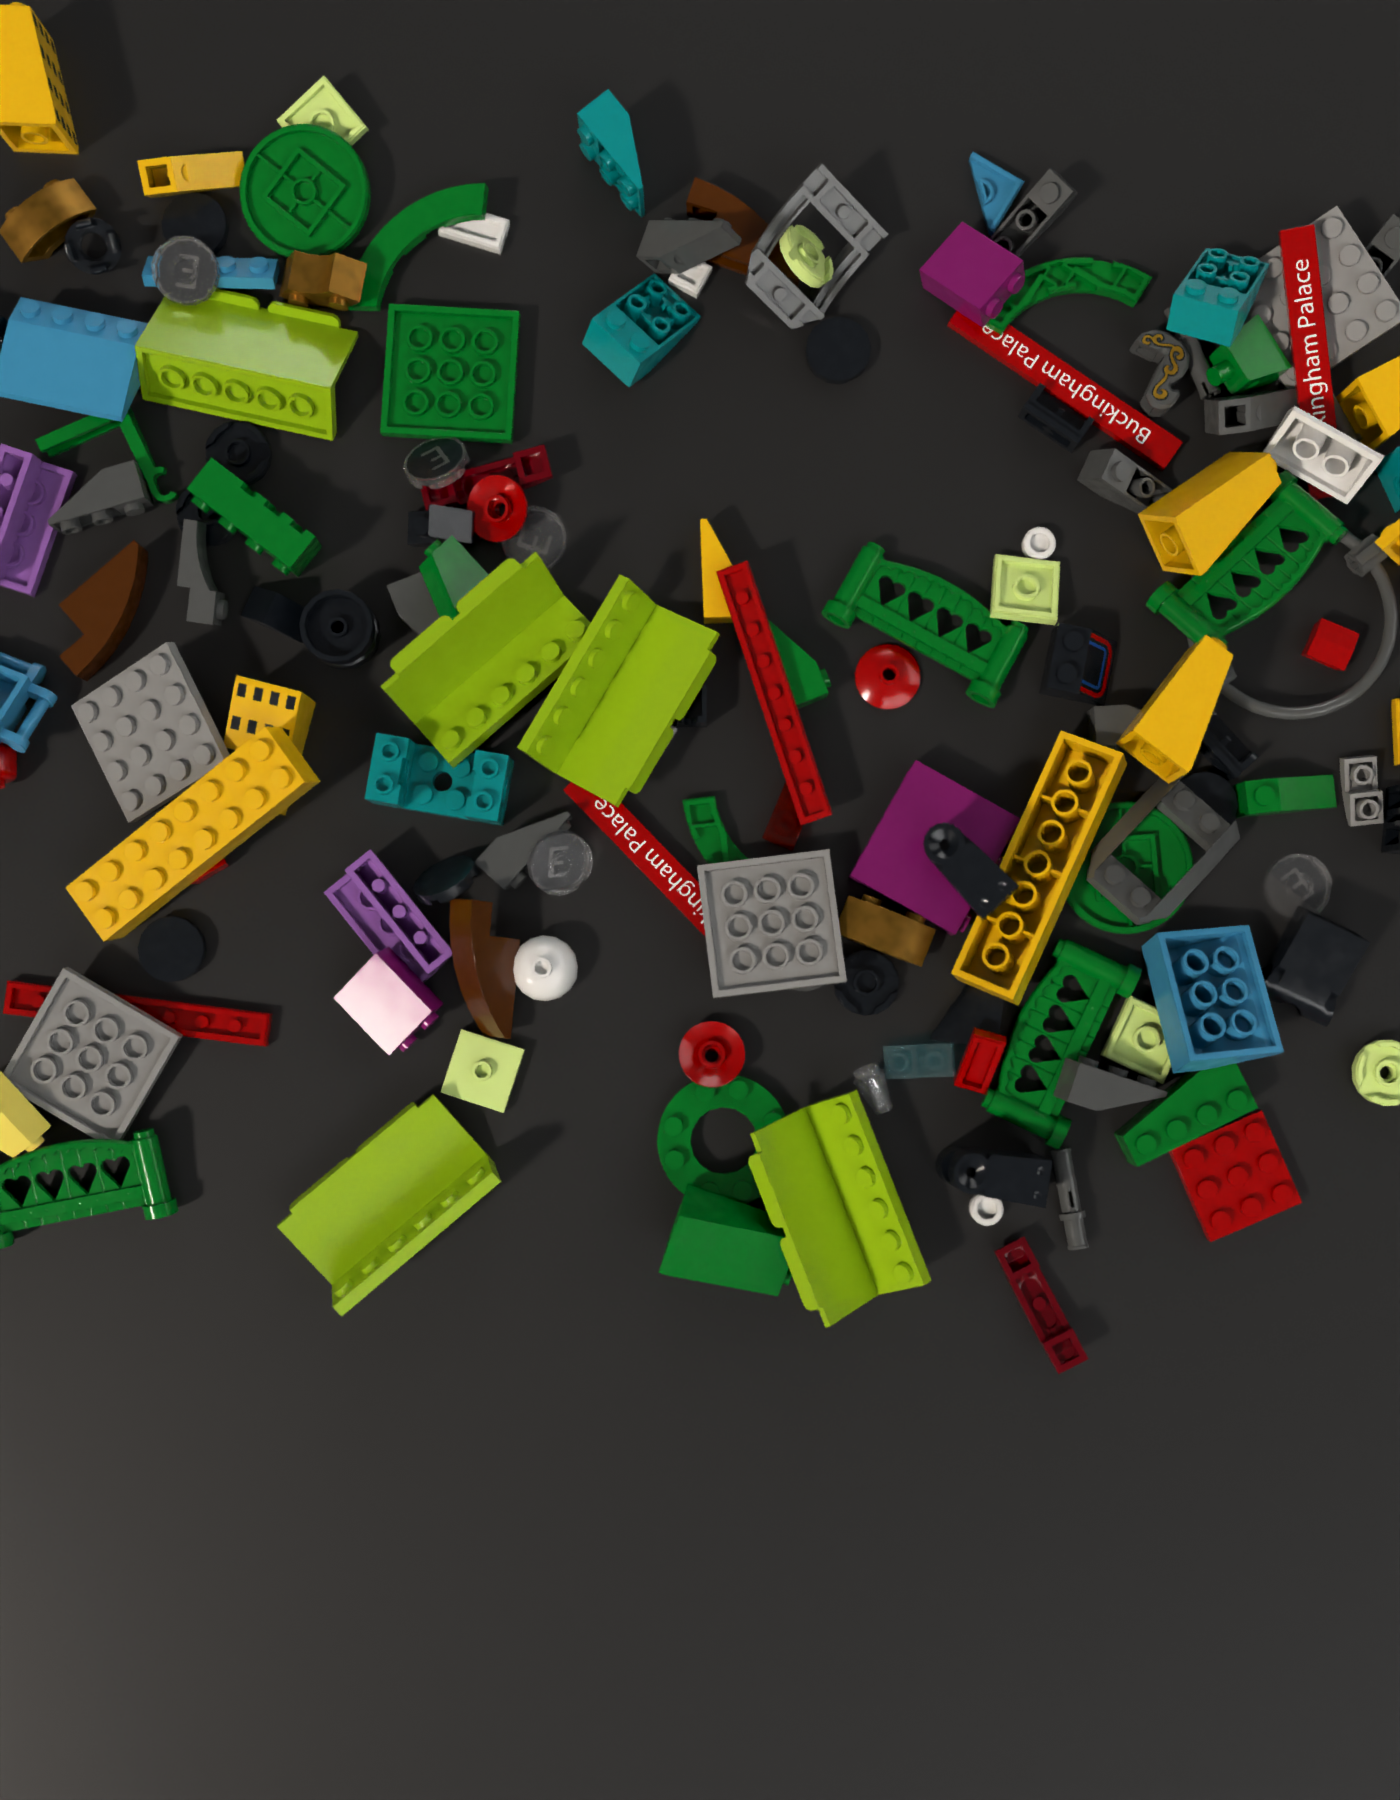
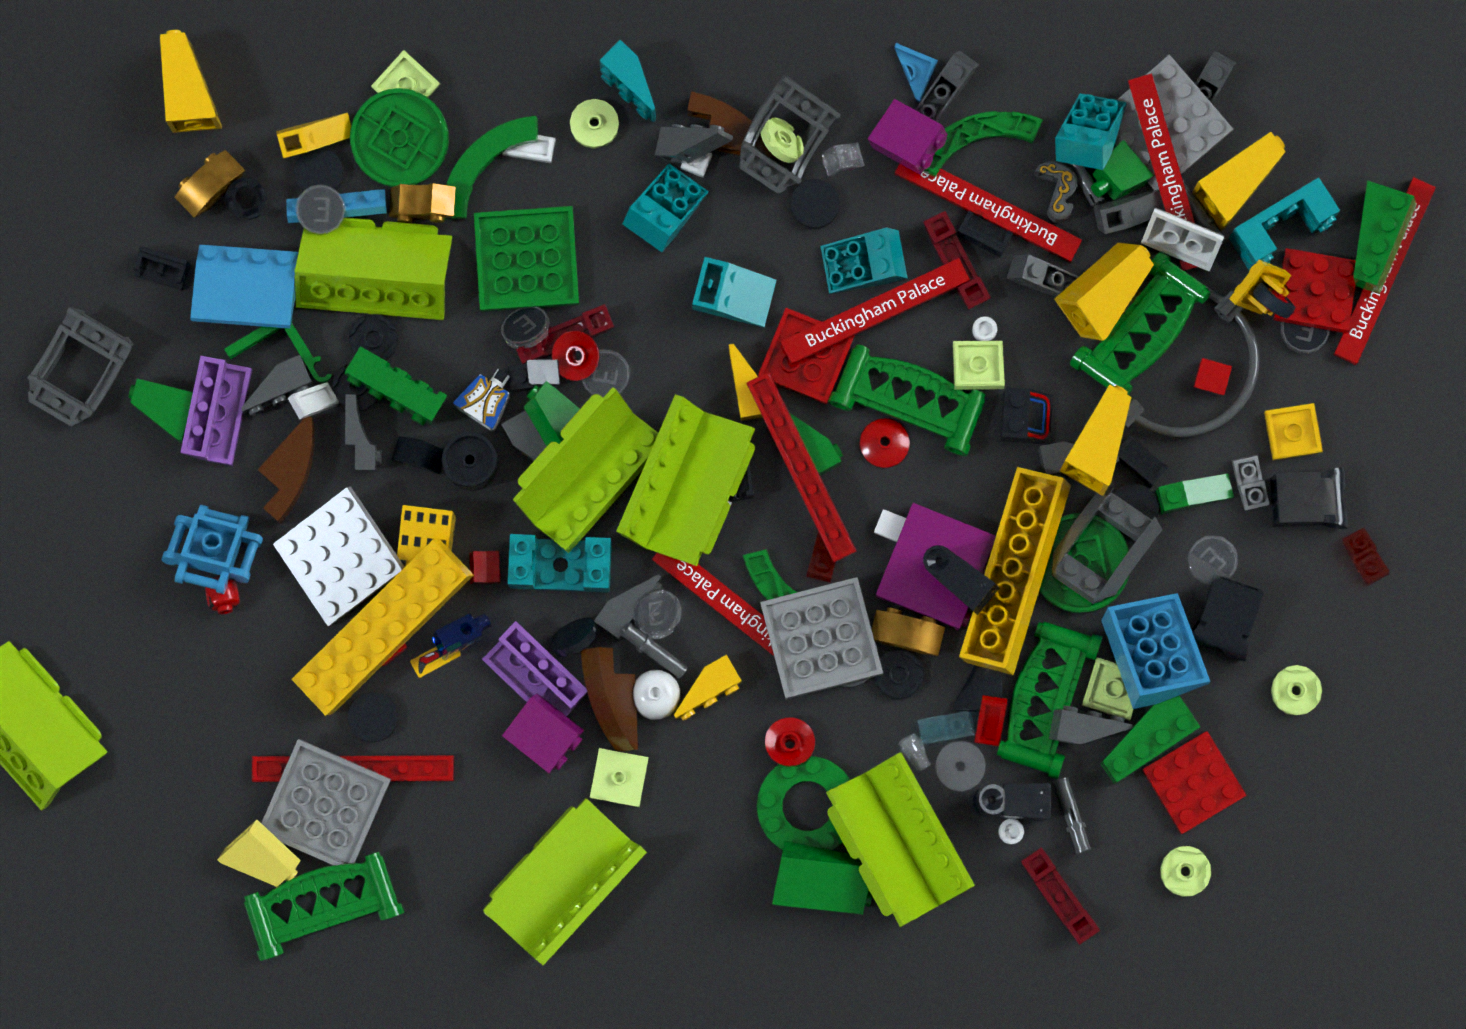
camera: 10 degrees left, 5 degrees down
(144, 523) = (313, 400): none -> white tile
(265, 882) = (429, 662): none -> yellow sticker
(282, 857) = (450, 639): none -> clear blue torso
(344, 772) = (485, 567): none -> red piece
(372, 551) = (485, 400): none -> torso
(539, 902) = (645, 644): none -> dark grey pin
(566, 223) = (598, 135): none -> yellowish green plate
(619, 962) = (713, 681): none -> yellow slope
(715, 451) = (733, 292): none -> teal slope
(801, 548) = (811, 376): none -> red plate
(880, 786) = (890, 525): none -> white tile
(882, 293) = (842, 158): none -> clear bracket
(893, 432) = (864, 261): none -> teal slope
(899, 500) = (875, 311): none -> red tile
(943, 1127) = (969, 756): none -> clear plate
(1012, 447) = (949, 249): none -> dark red slope
(1221, 1303) = (1196, 863): none -> yellowish green plate

